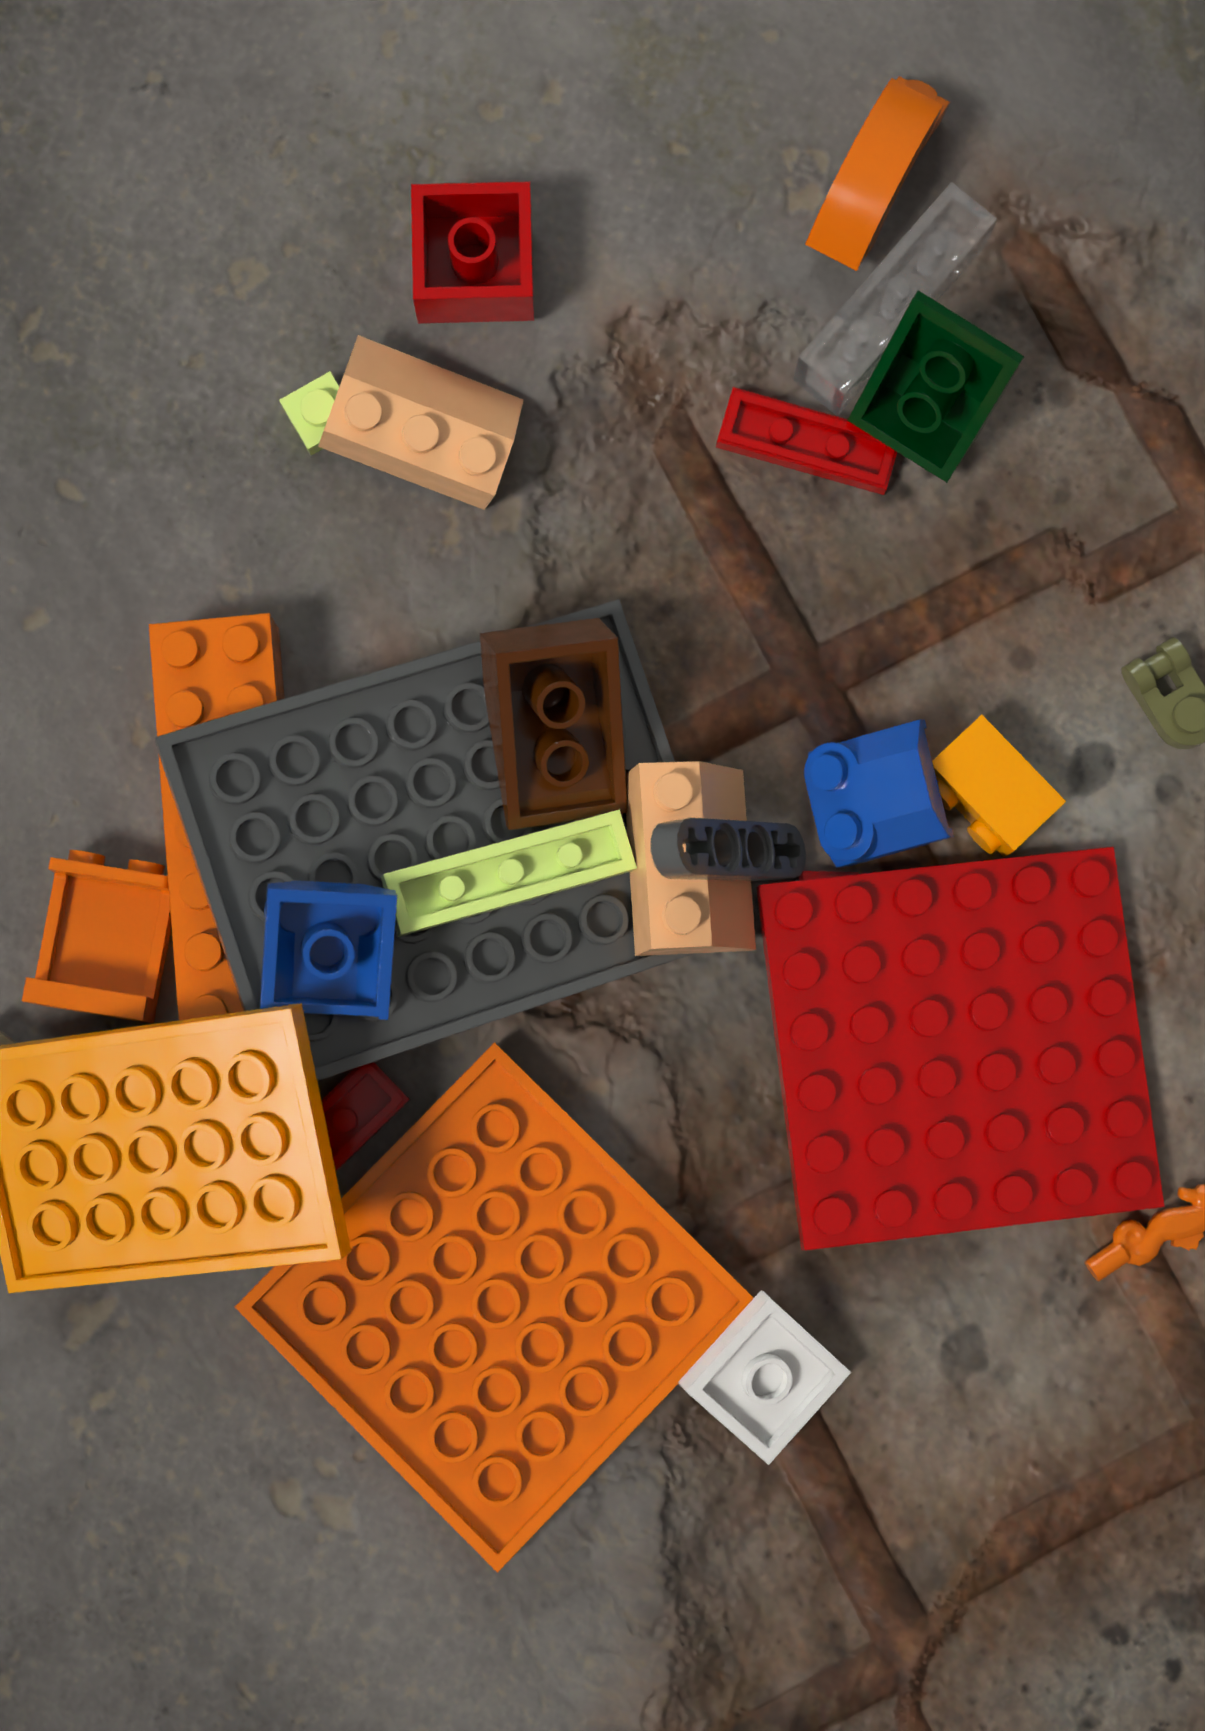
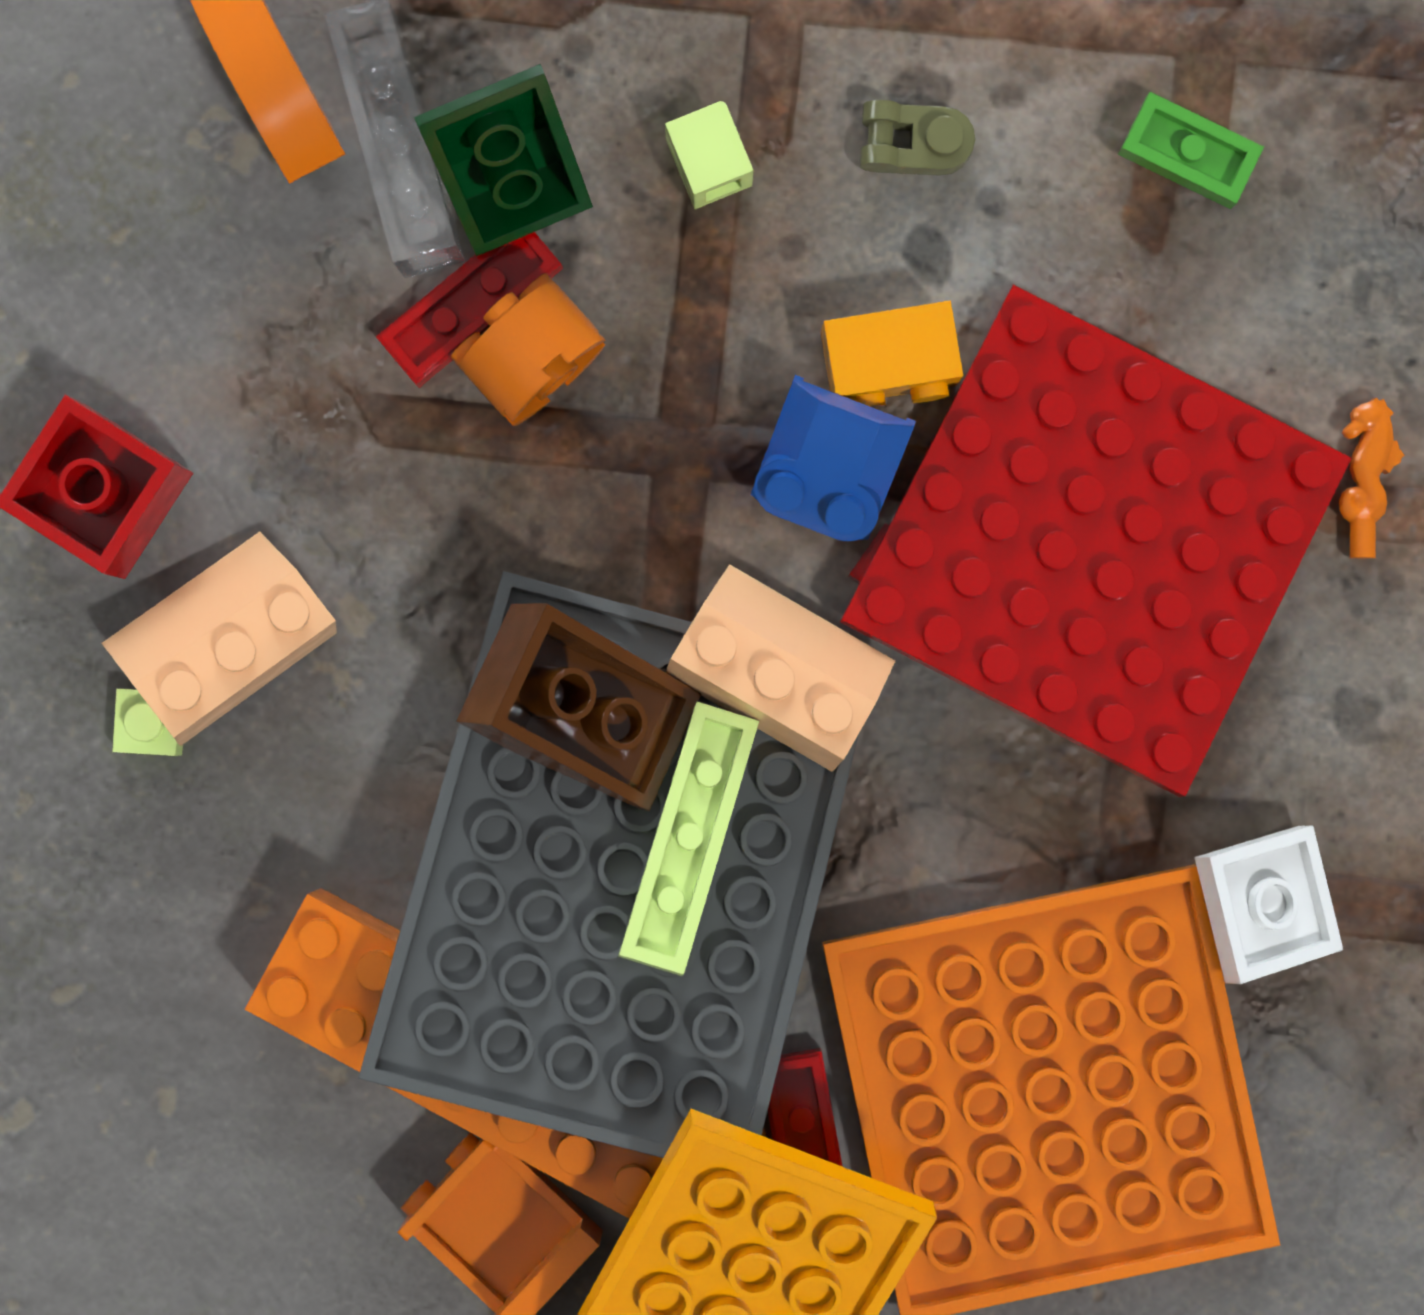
camera: 55 degrees left, 5 degrees up
(328, 947) = (653, 1048): blue slope -> none
(727, 850) = (807, 620): dark grey beam -> none
(803, 505) = (529, 349): none -> orange brick
(1049, 544) = (709, 154): none -> yellowish green panel

